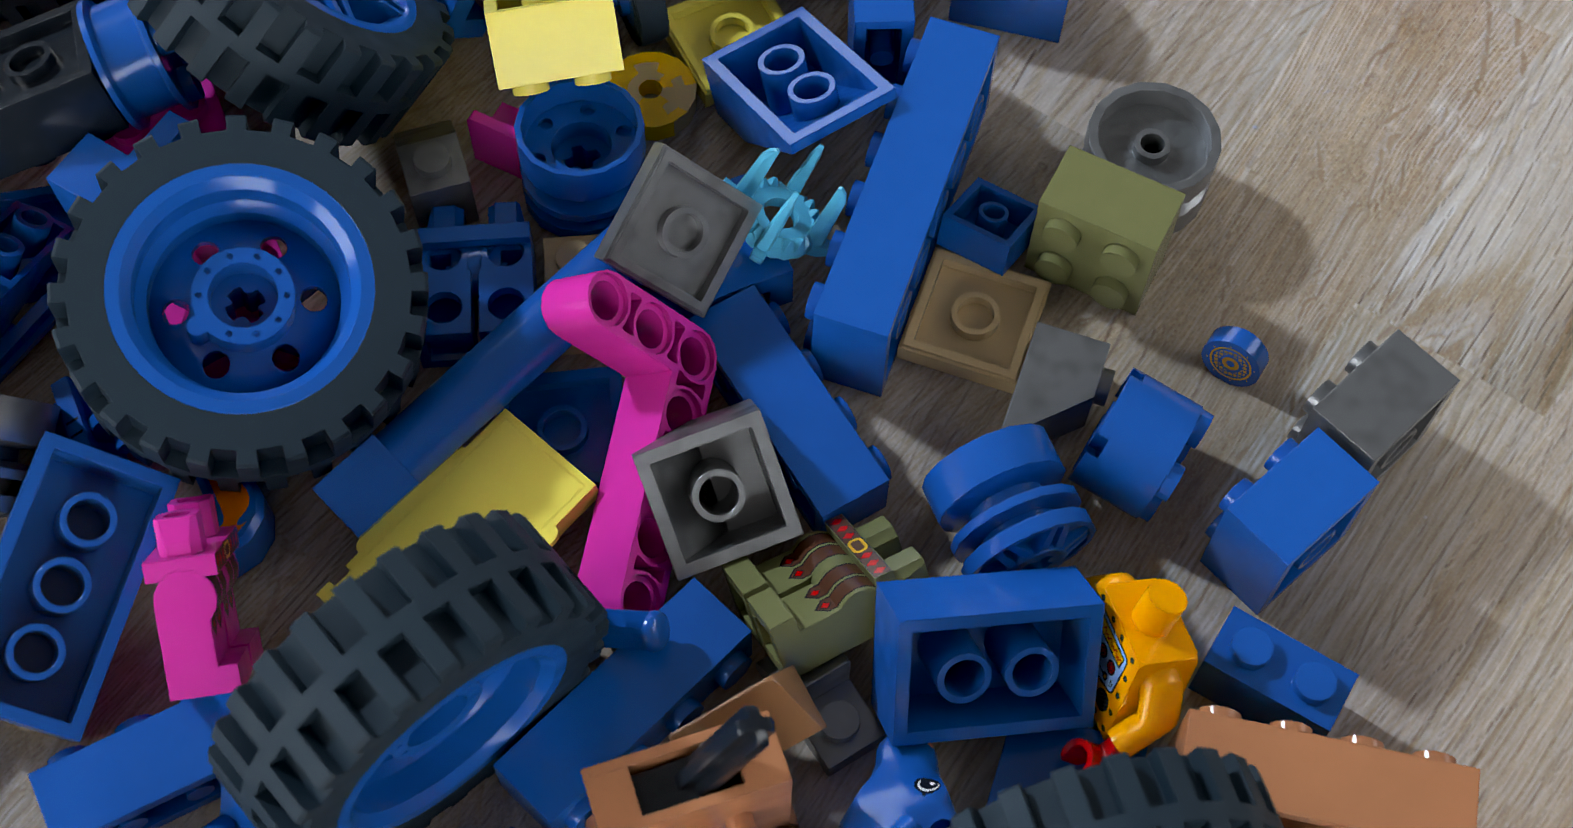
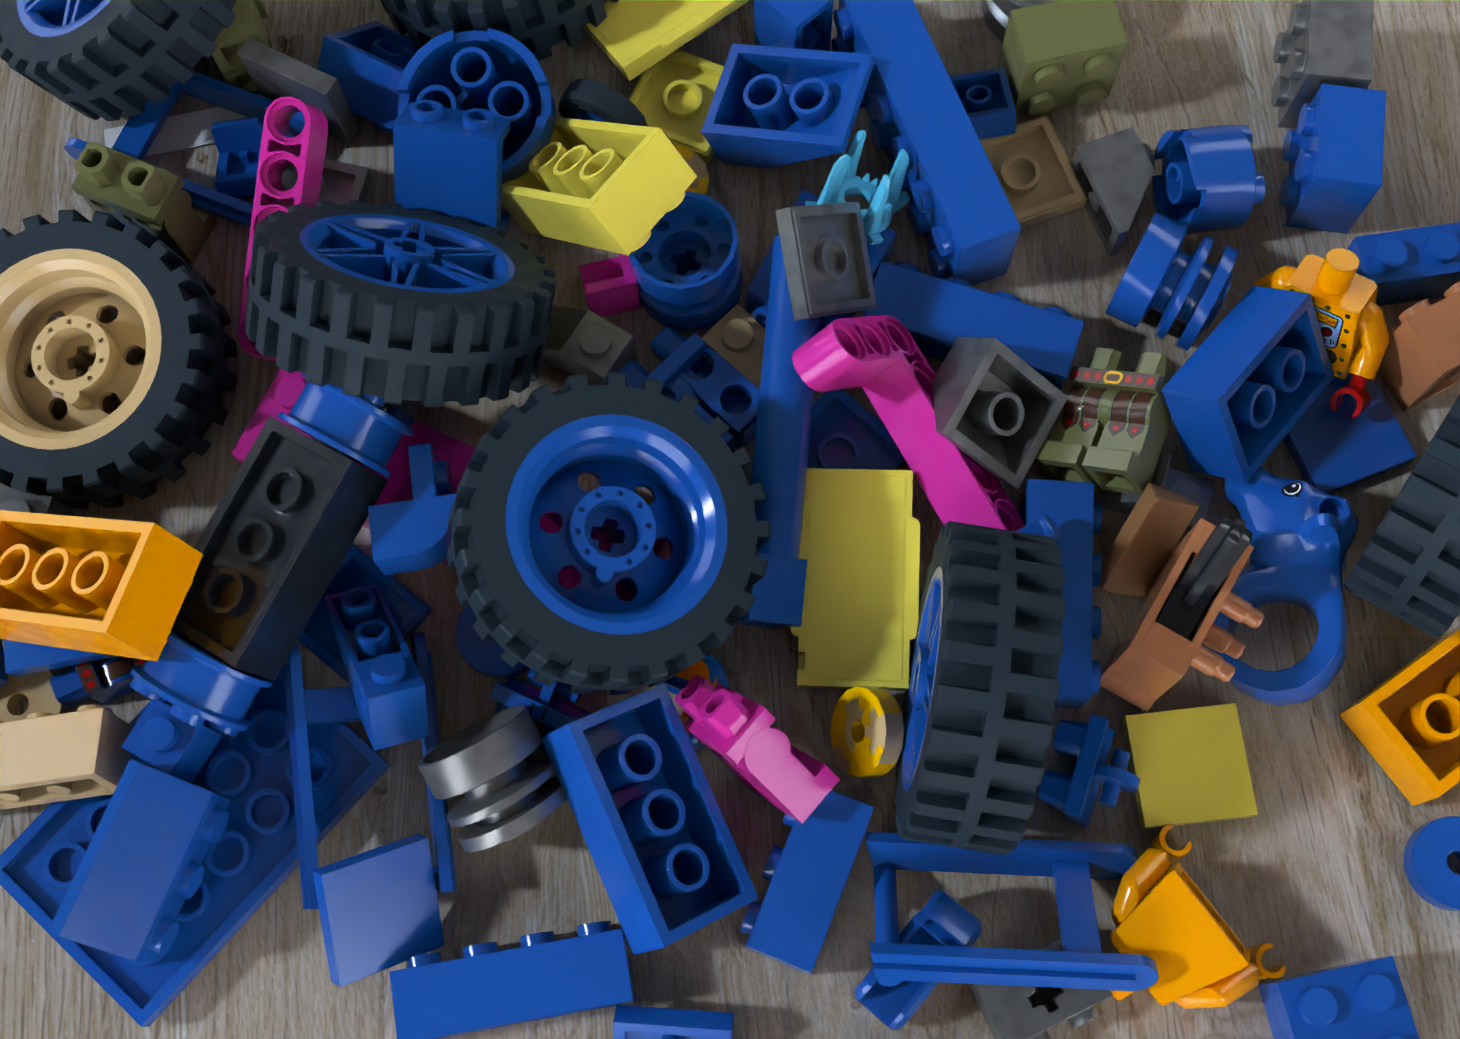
camera: 35 degrees left, 10 degrees up
(1235, 356) = (1200, 76): blue tile -> none

